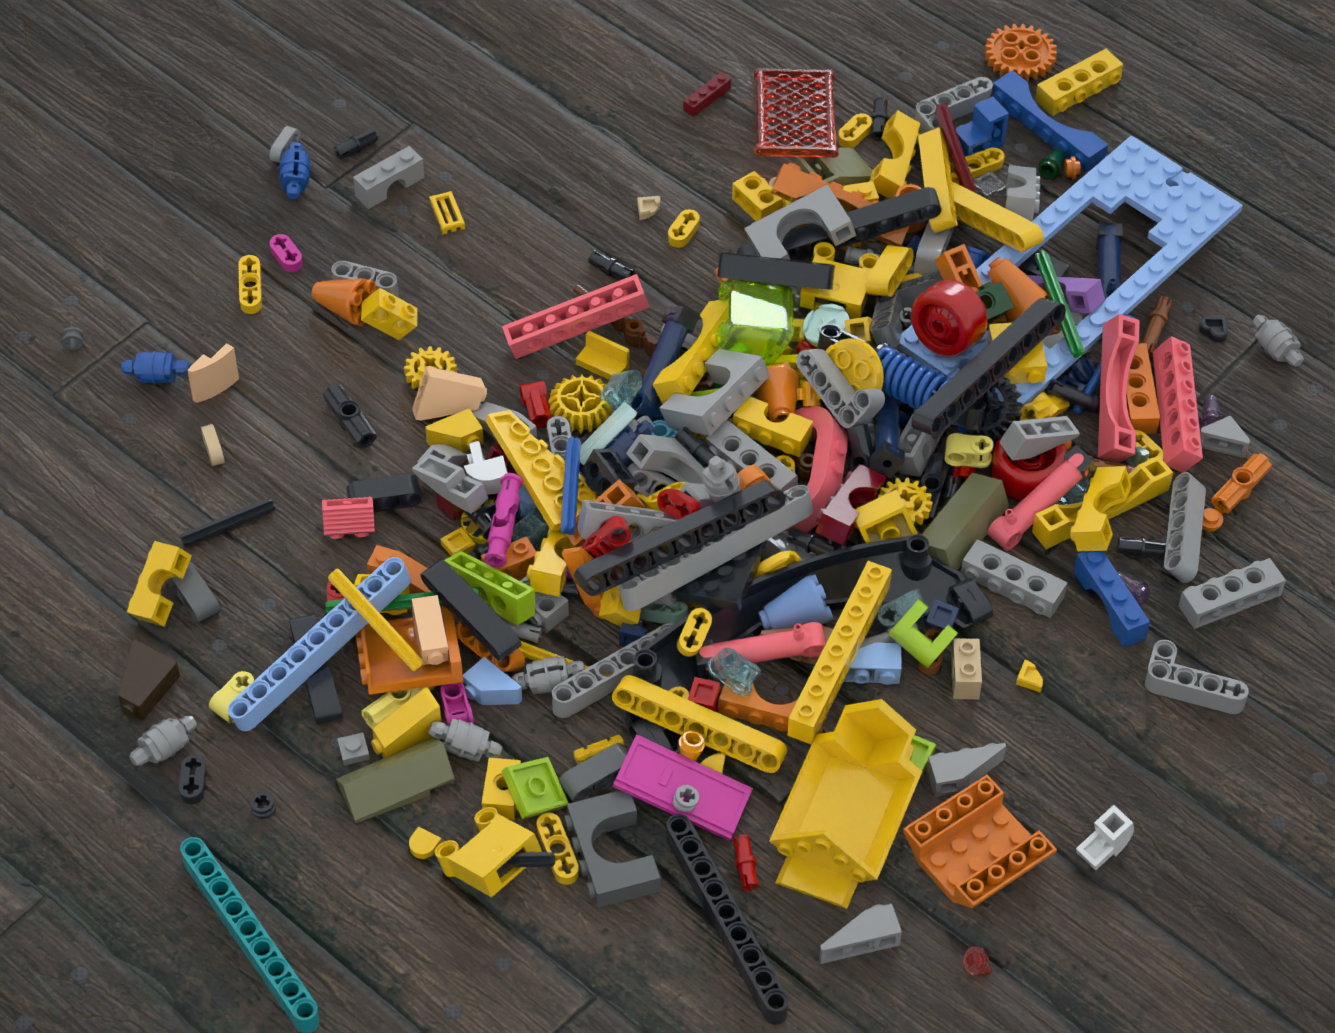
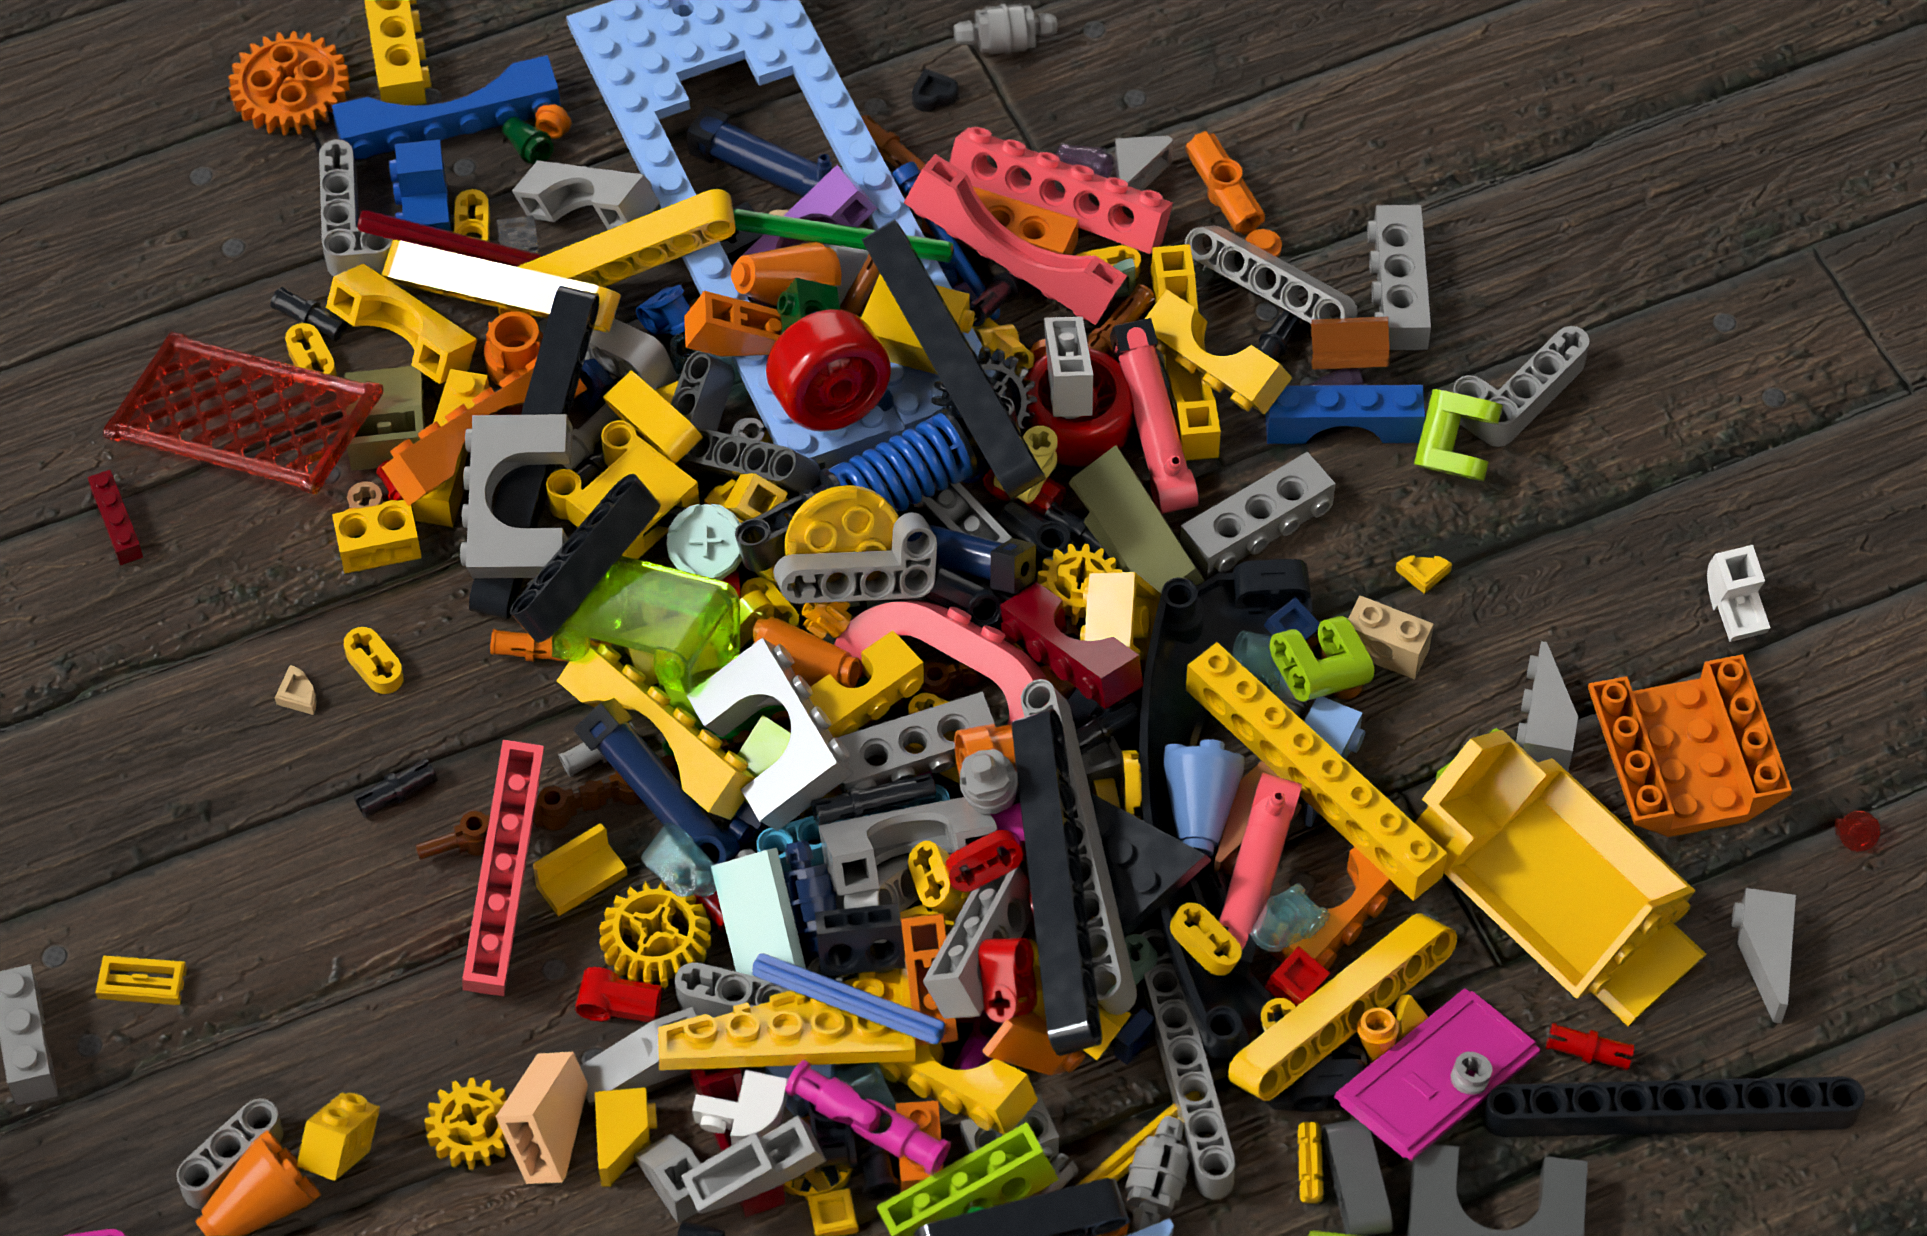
camera: 65 degrees left, 5 degrees up
(1135, 641) = (1441, 430): none -> lime connector
(1160, 579) = (1350, 342): none -> dark orange panel

